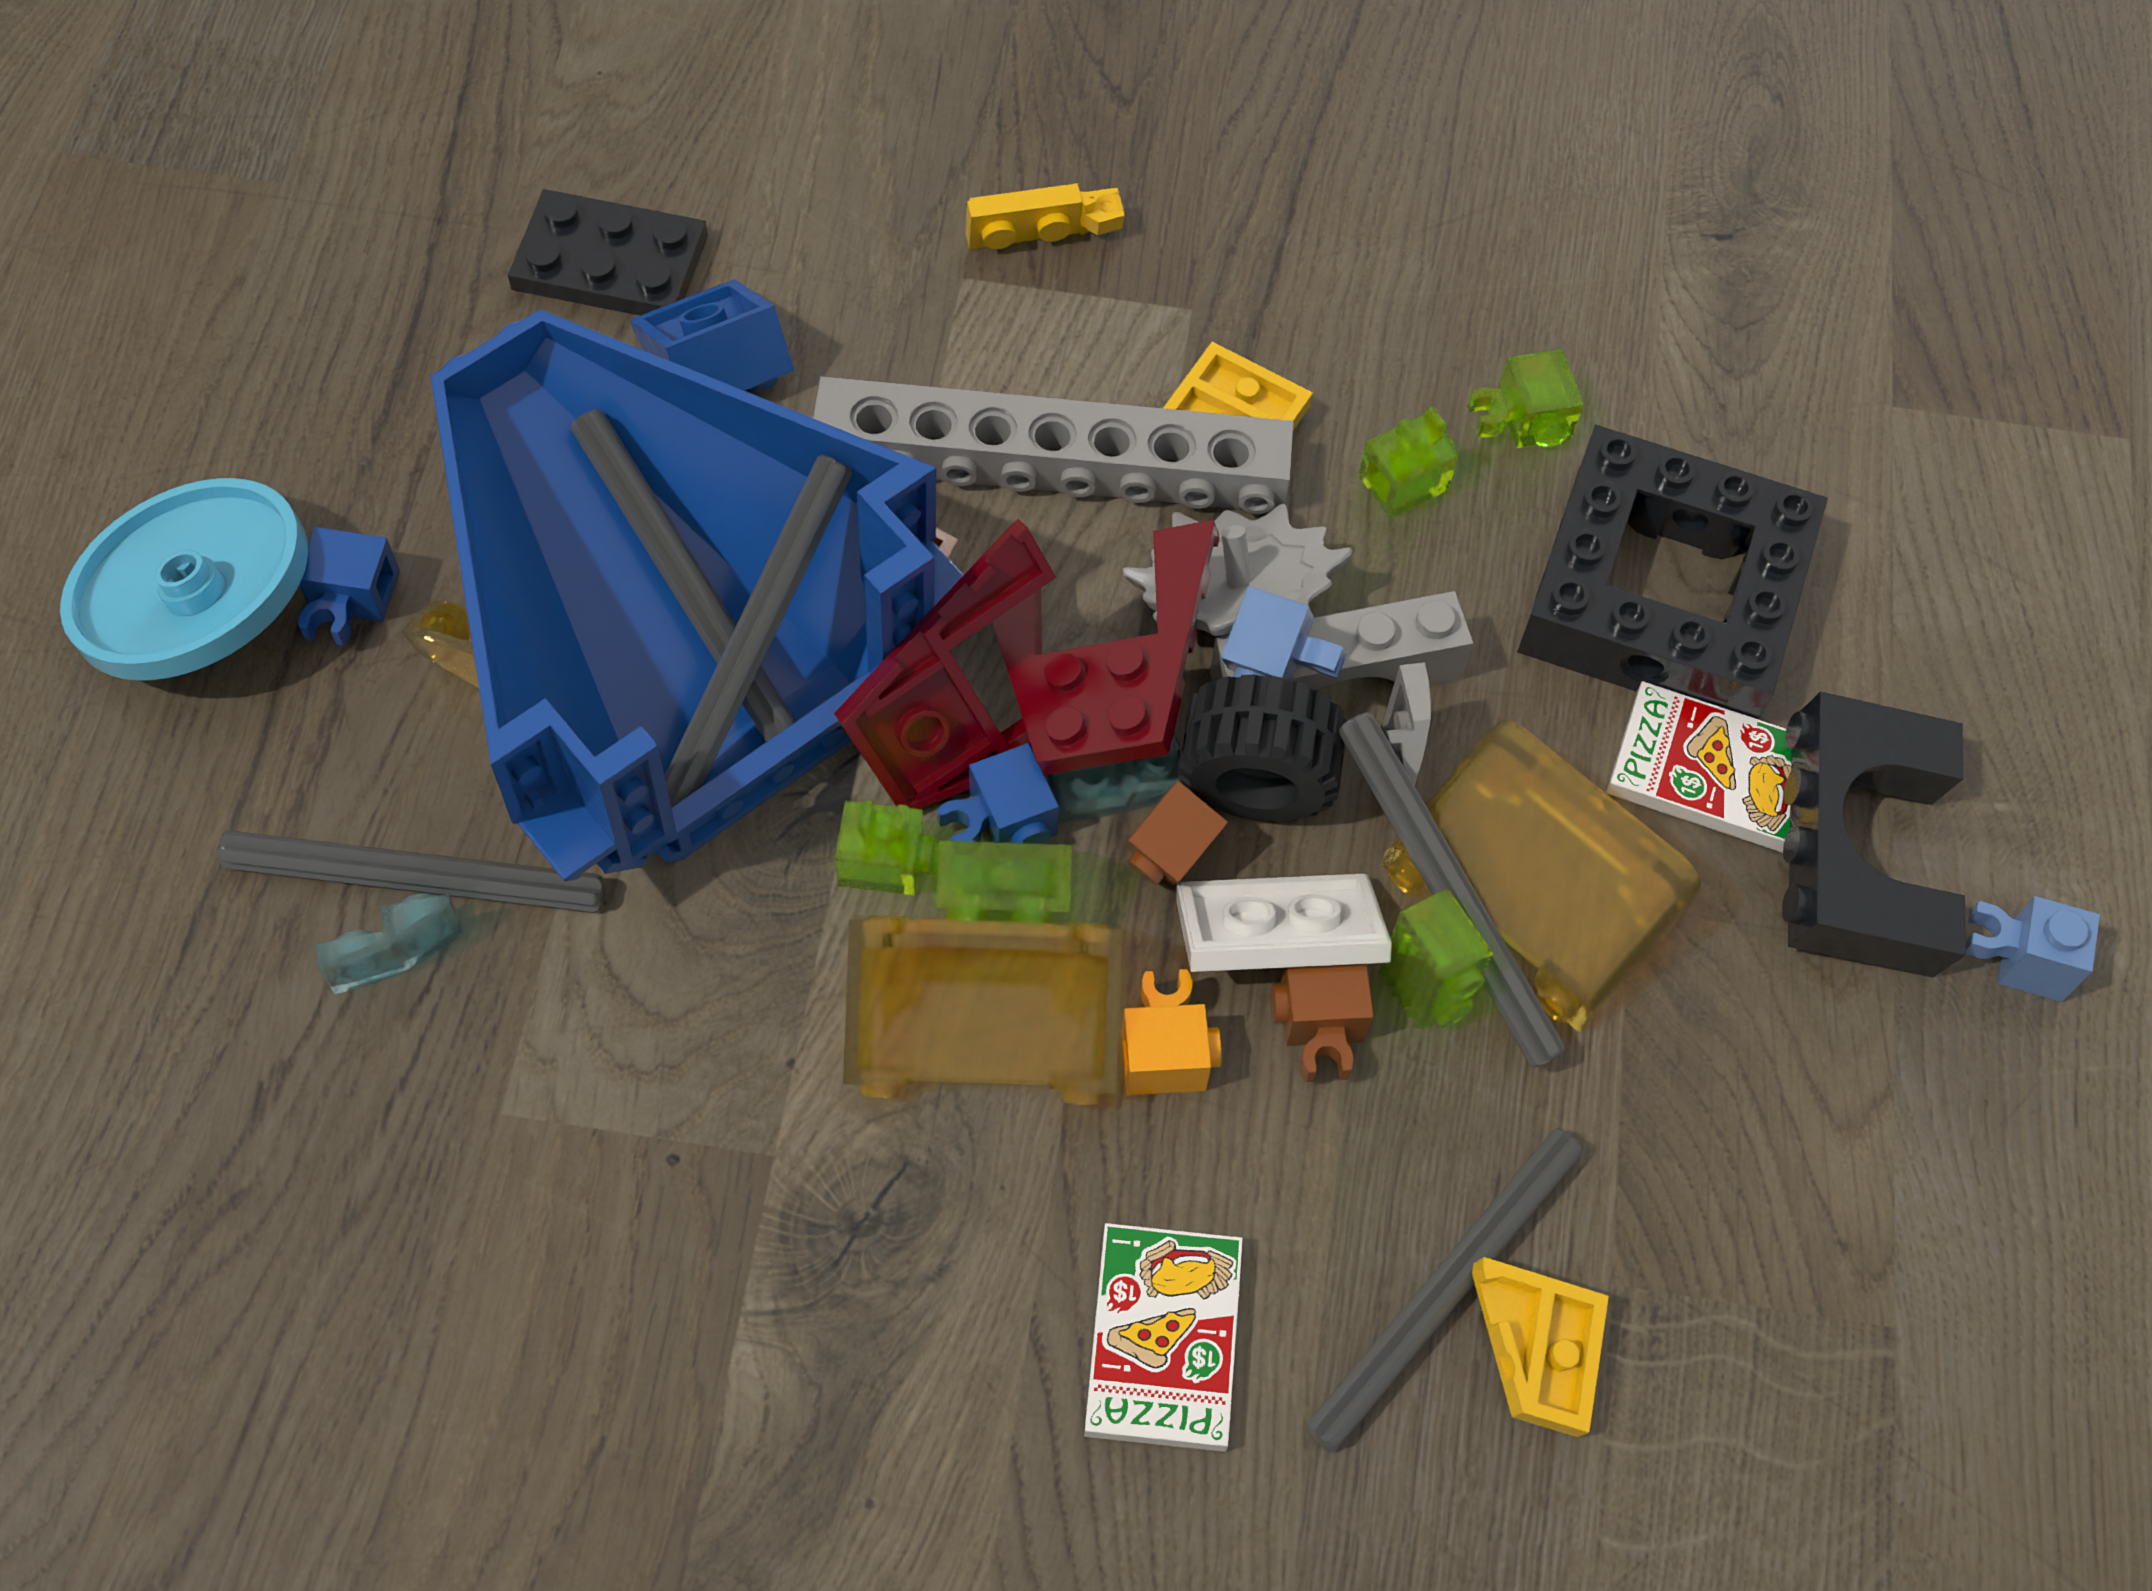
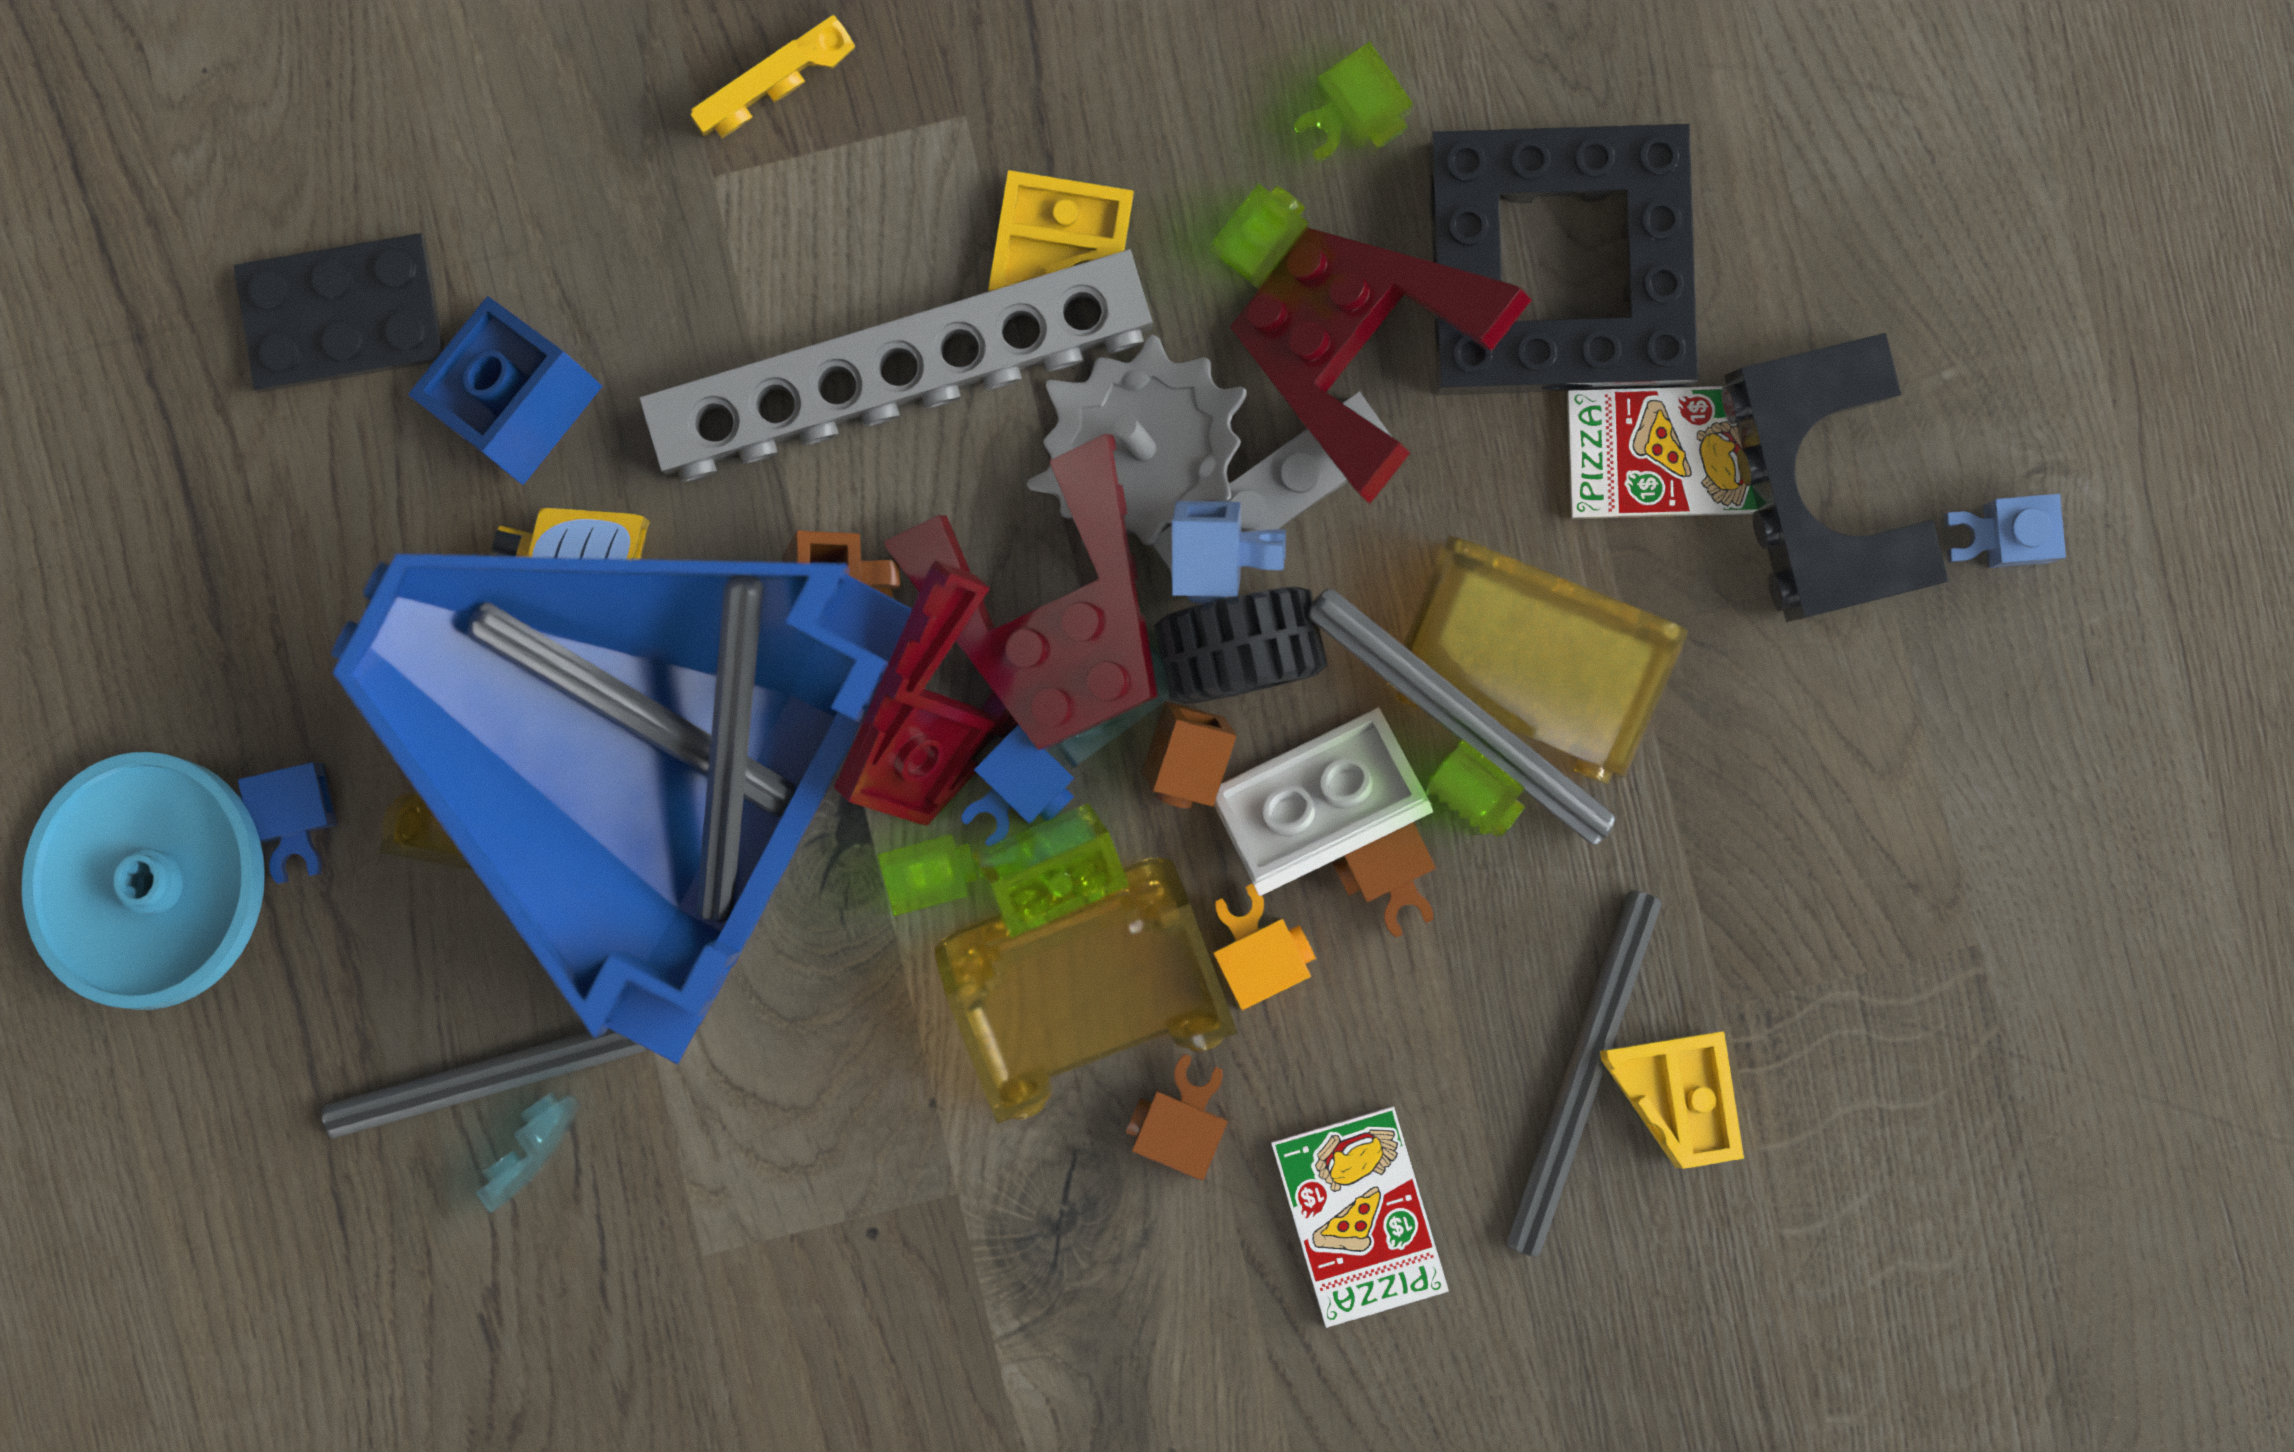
camera: 15 degrees left, 25 degrees up
(1022, 1171) = (1179, 1130): none -> dark orange brick
(1409, 717) = (1365, 554): light grey slope -> none
(1464, 520) = (1323, 311): none -> dark red wing

